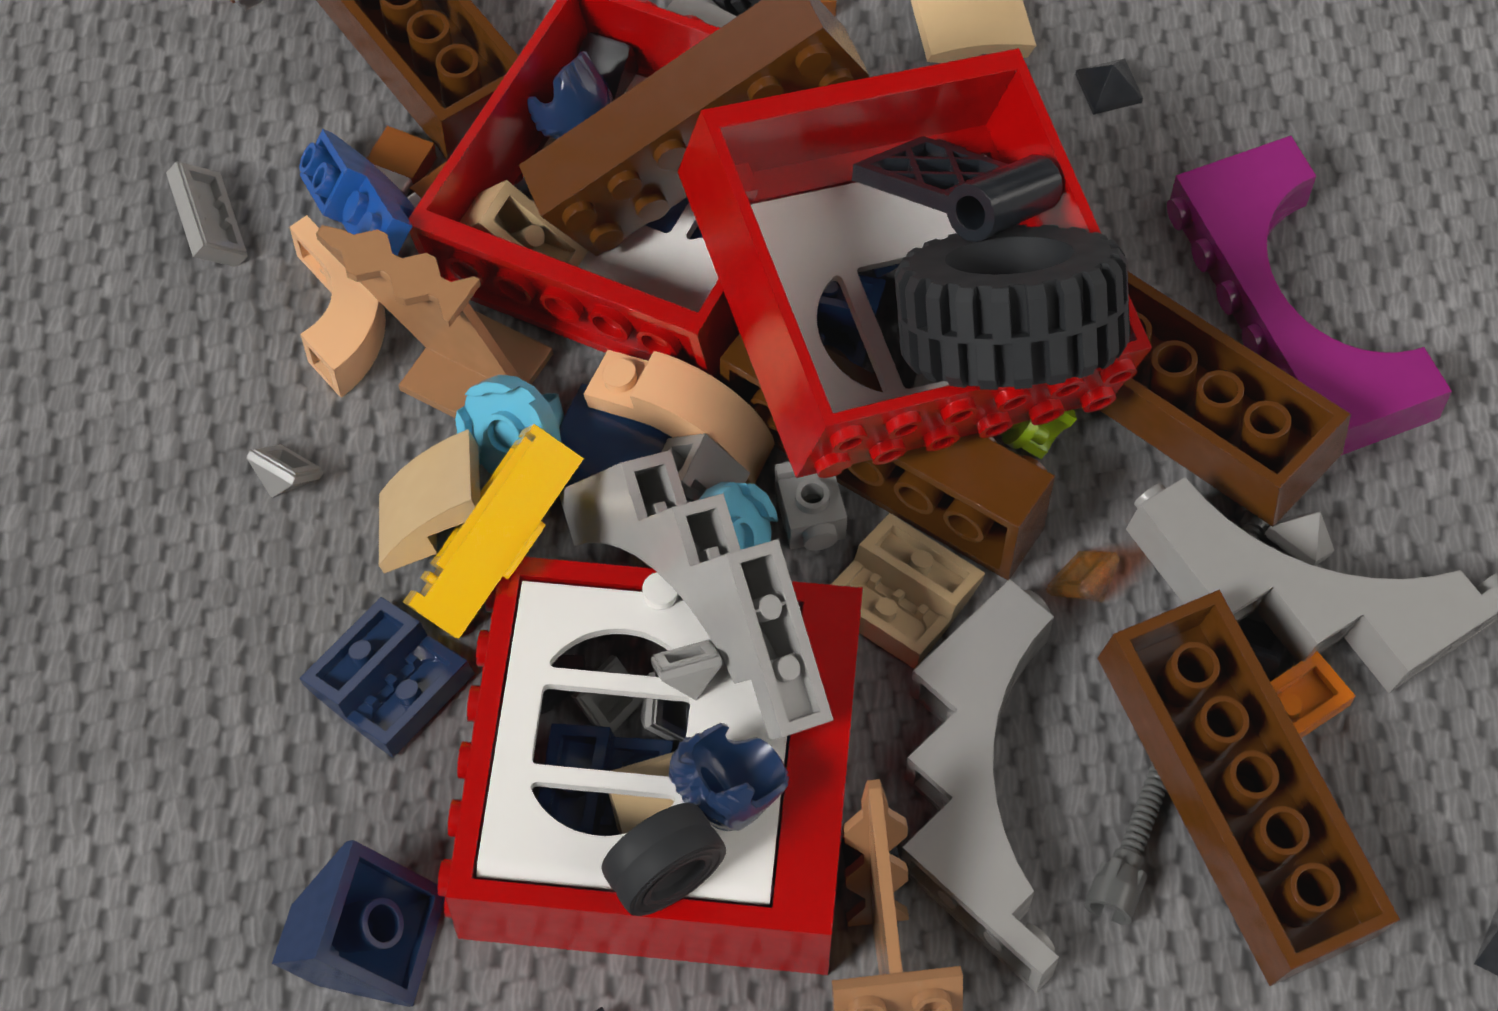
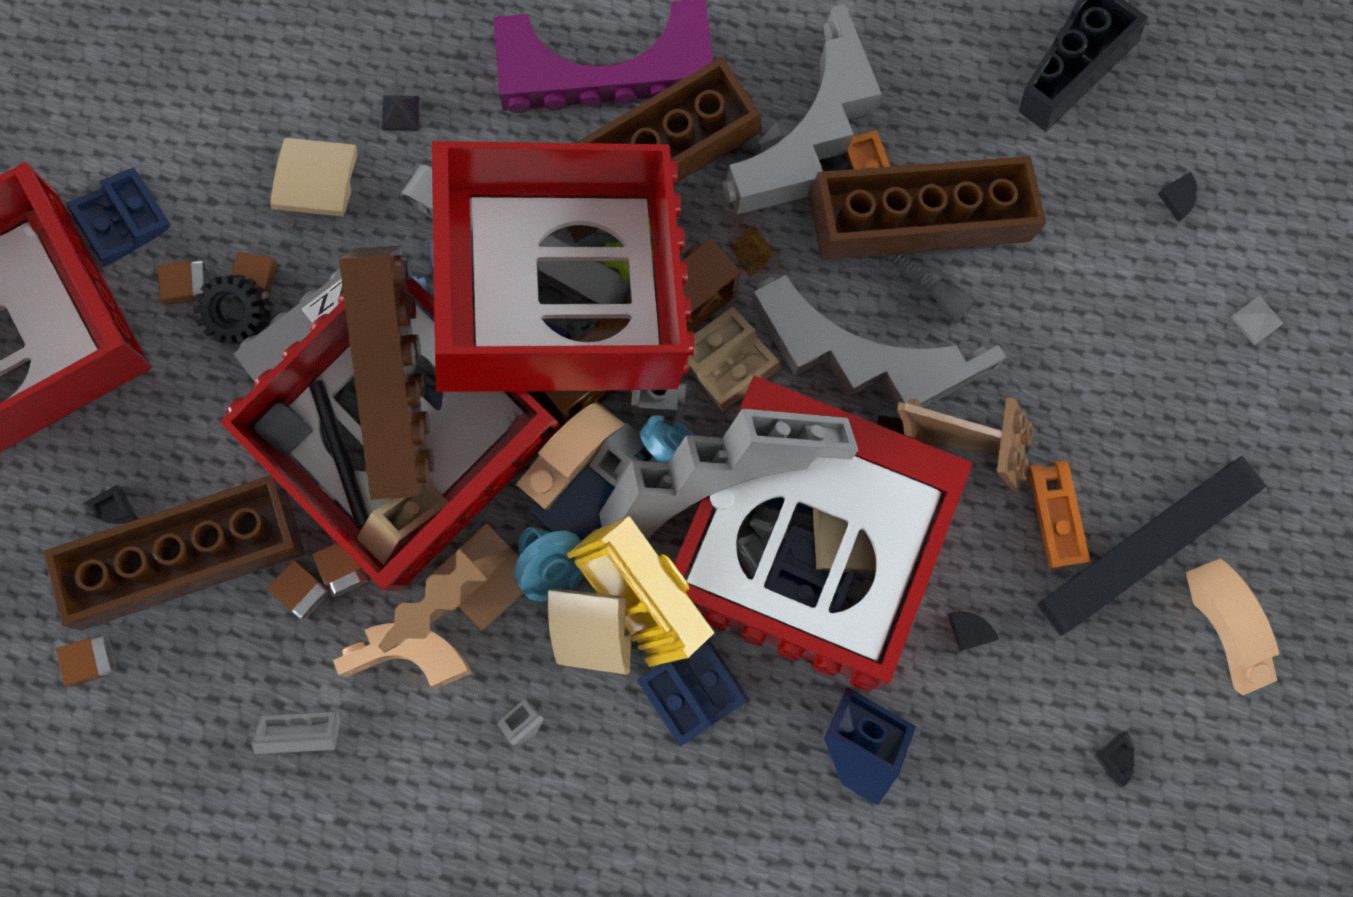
camera: 75 degrees left, 15 degrees up
(354, 190) = (329, 619): blue slope -> none
(577, 96) = (310, 452): dark blue hair -> none
(663, 859) = (919, 542): black tyre -> none
(688, 667) = (782, 494): light grey slope -> none
(727, 777) = (873, 489): dark blue hair -> none
(973, 190) = (536, 198): black piece -> none
(1013, 307) = (655, 226): black tyre -> none
(1303, 537) = (771, 120): light grey slope -> none

